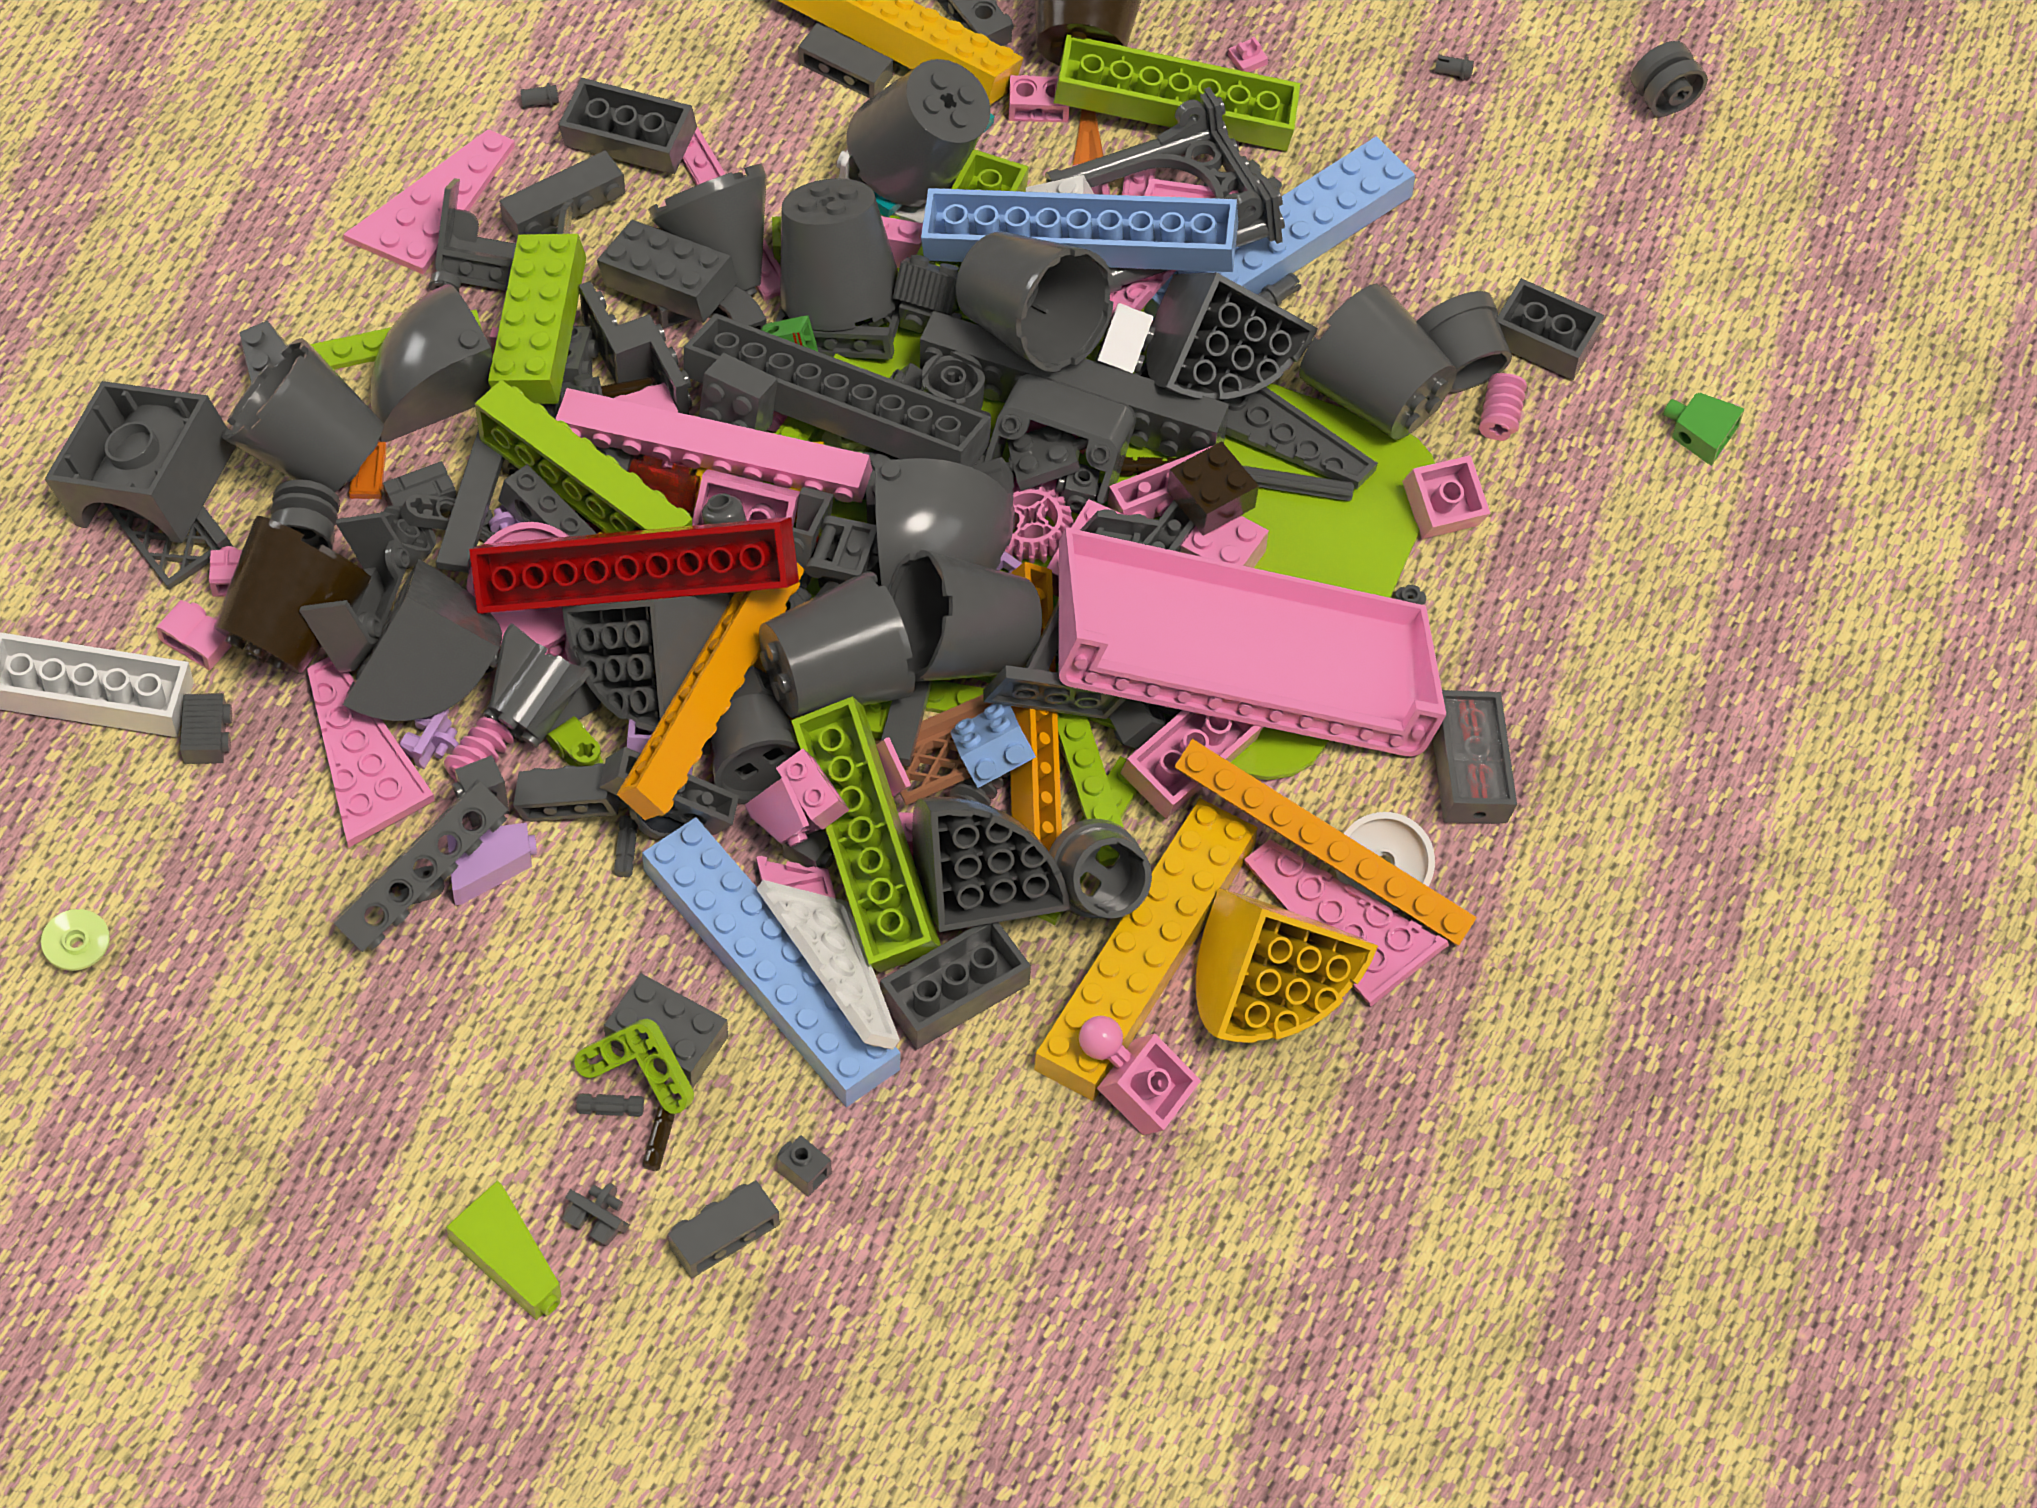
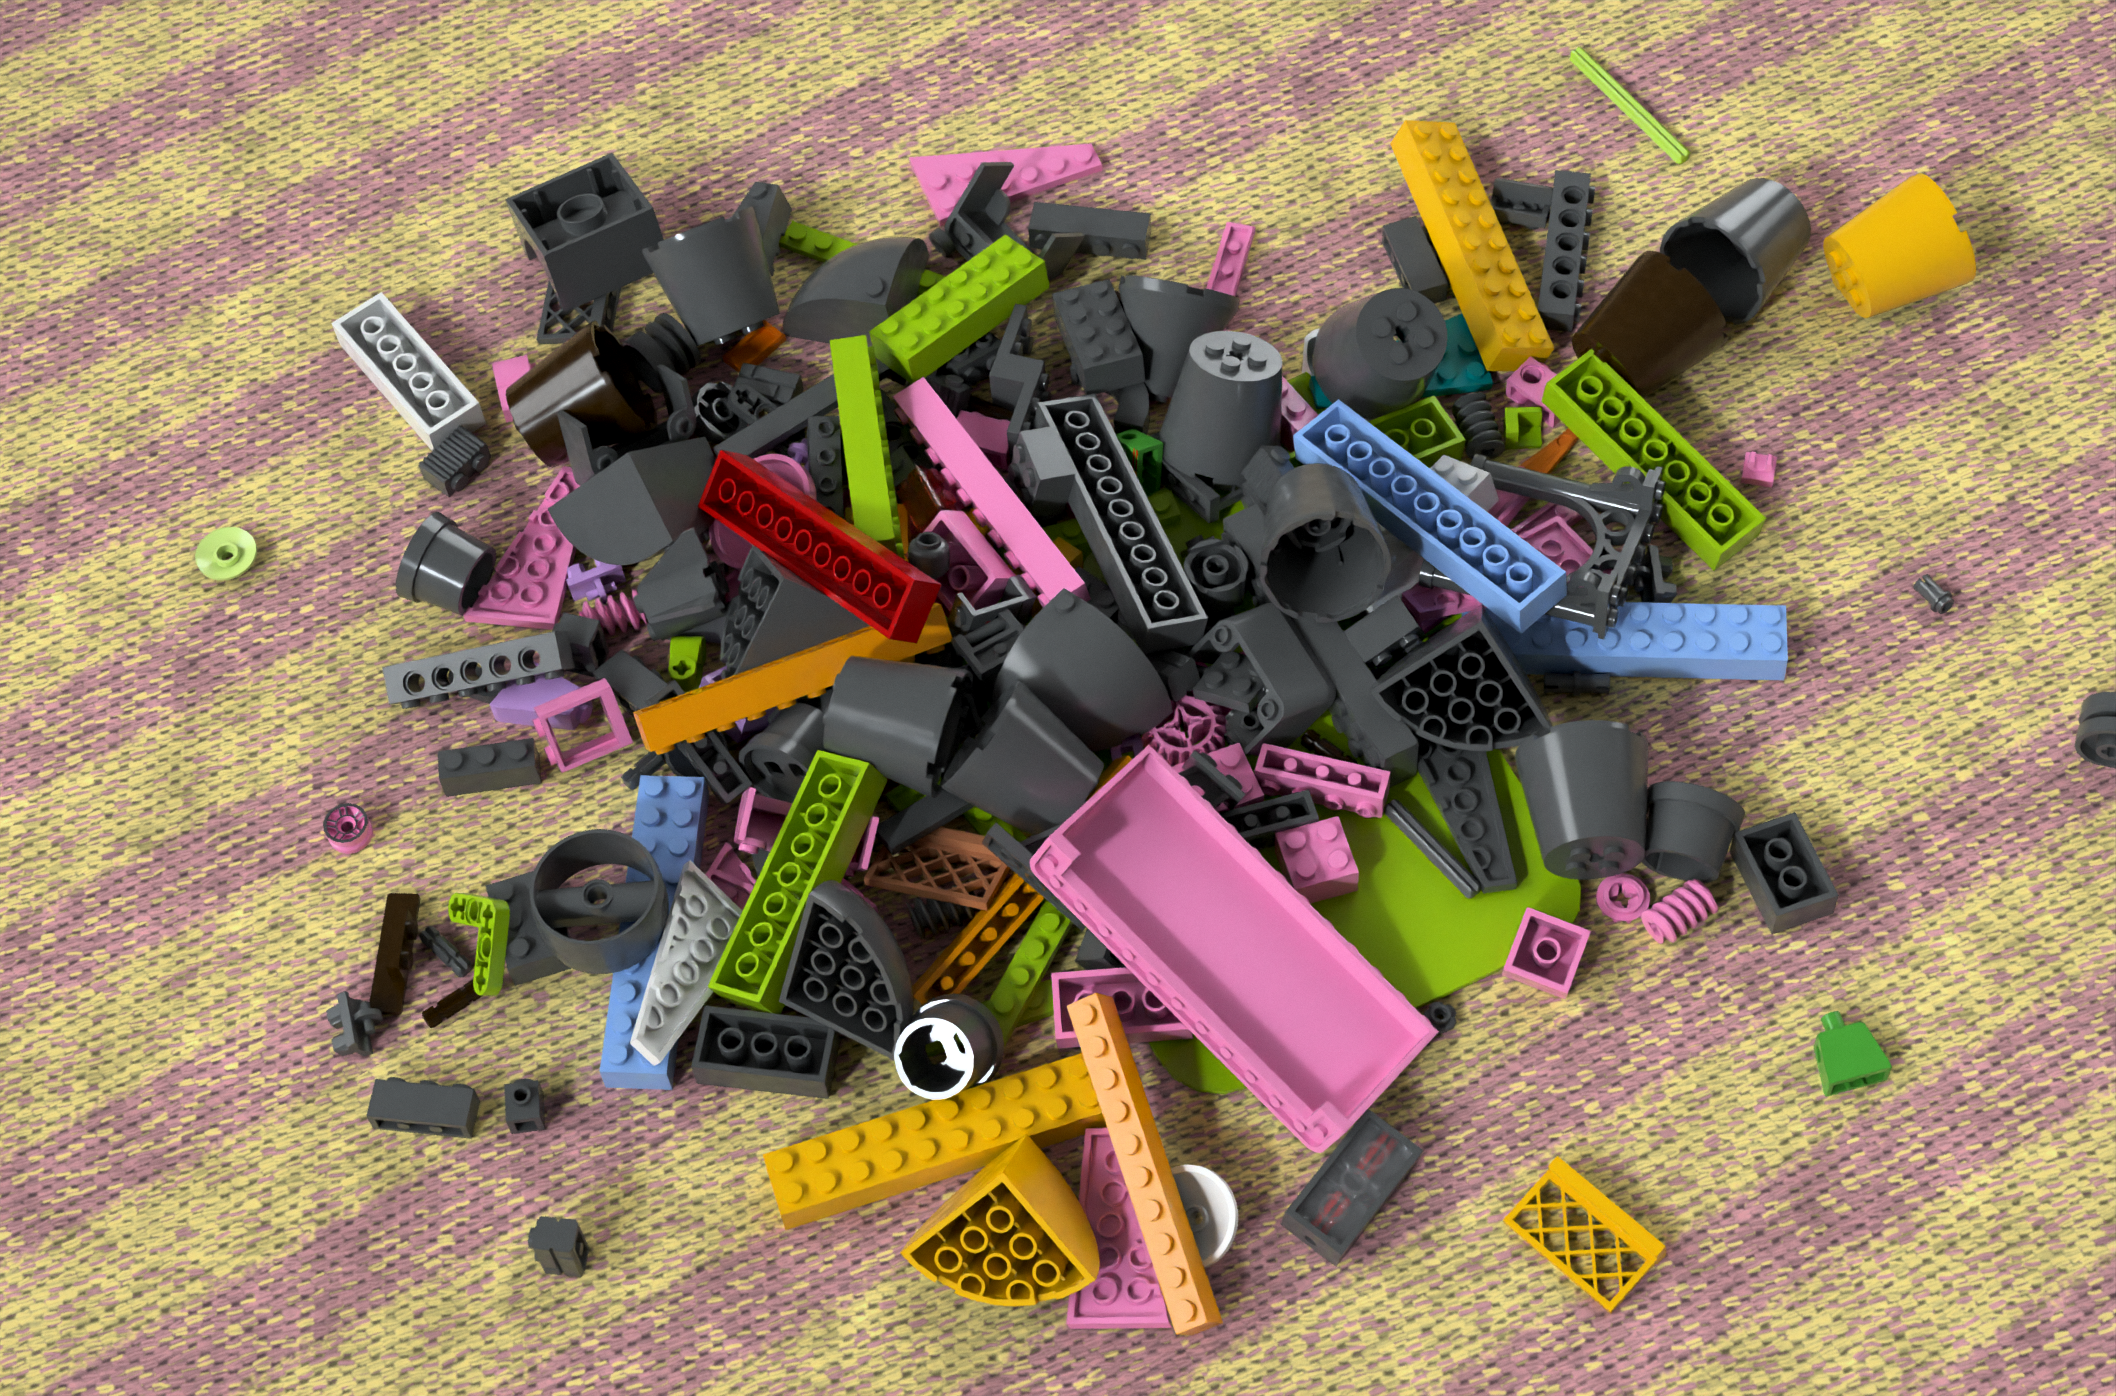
camera: 50 degrees right, 0 degrees up
(303, 809) = (444, 566): none -> dark grey piece
(430, 1061) = (339, 821): none -> bright pink wheel
(499, 940) = (489, 767): none -> dark grey brick
(504, 1249) = (267, 1003): lime slope -> none
(539, 96) = (1160, 144): dark grey pin -> none
(570, 1133) = (395, 953): none -> dark brown bracket
(572, 829) = (590, 750): none -> bright pink window
(628, 125) = (1189, 205): dark grey brick -> none
(700, 990) = (574, 906): none -> dark grey cylinder
(813, 789) = (776, 814): bright pink brick -> none
(948, 1237) = (559, 1246): none -> dark grey brick
(991, 743) = (959, 883): light blue bracket -> none
(1014, 150) = (1478, 426): none -> dark grey piece
(1048, 136) = (1522, 427): none -> lime panel
(1146, 1078) = (808, 1182): bright pink brick -> none
(1212, 488) = (1334, 802): dark brown brick -> none
(1448, 415) = (1631, 888): none -> bright pink gear
(1647, 646) = (1606, 1213): none -> yellow fence

